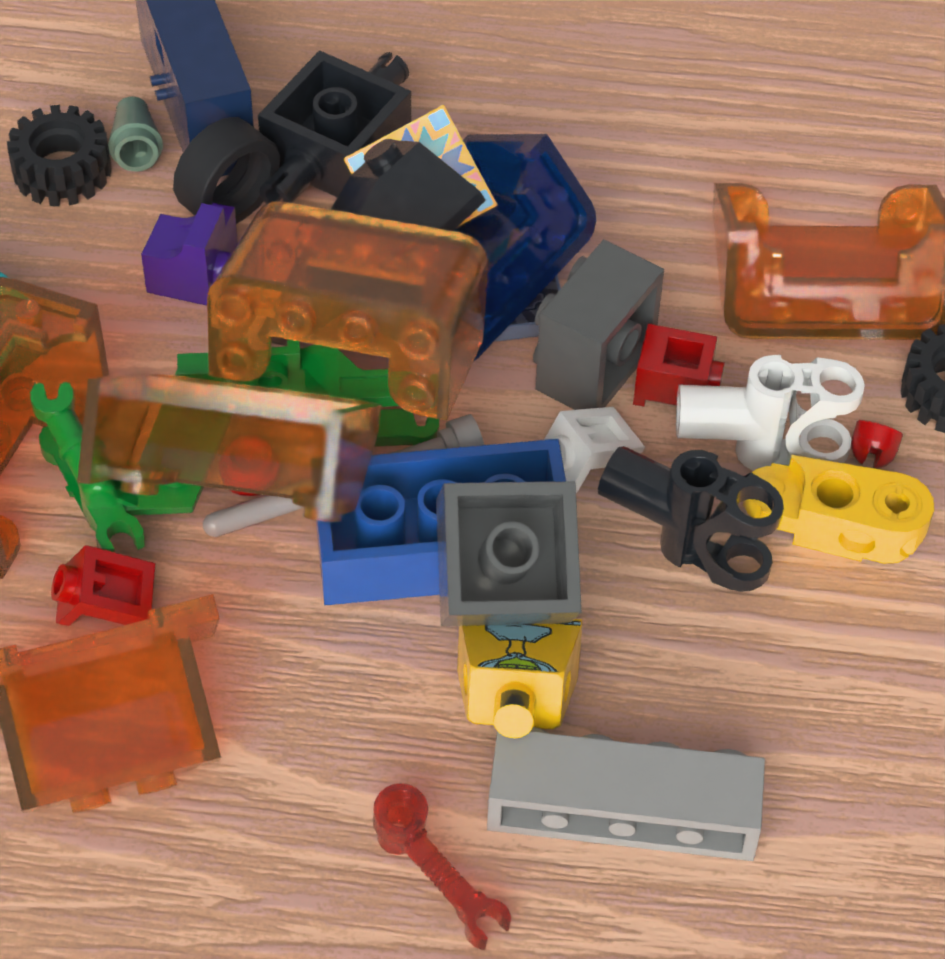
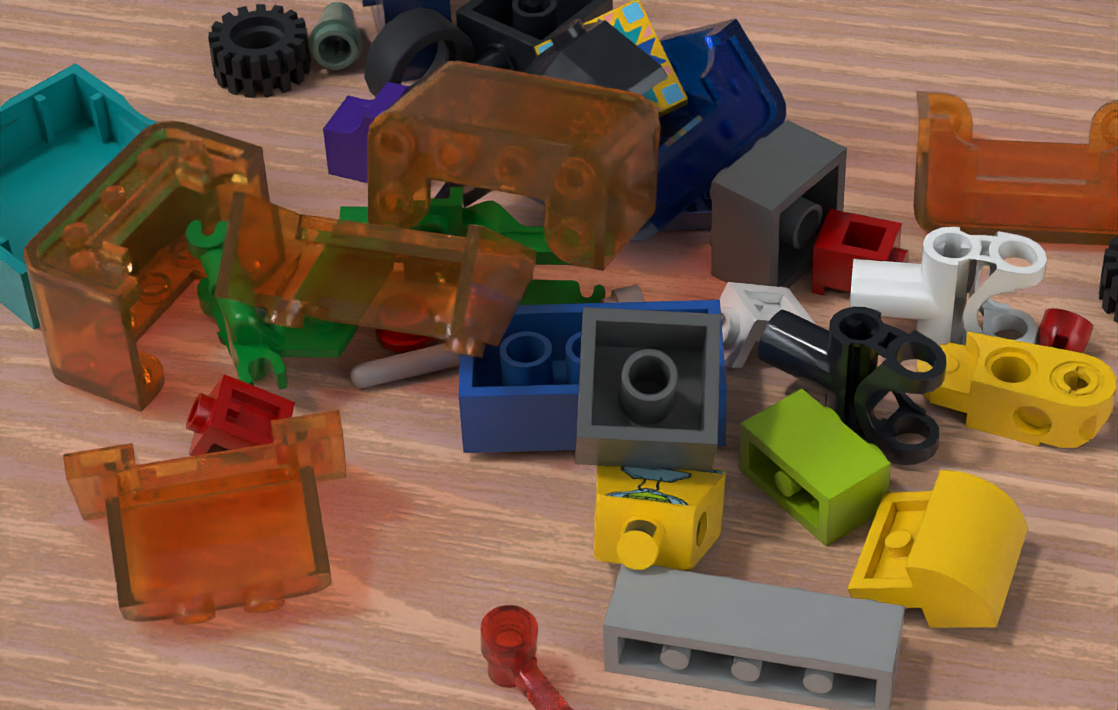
camera: 10 degrees right, 10 degrees down
(661, 603) = (814, 466): none -> lime brick
(788, 691) = (943, 551): none -> yellow brick

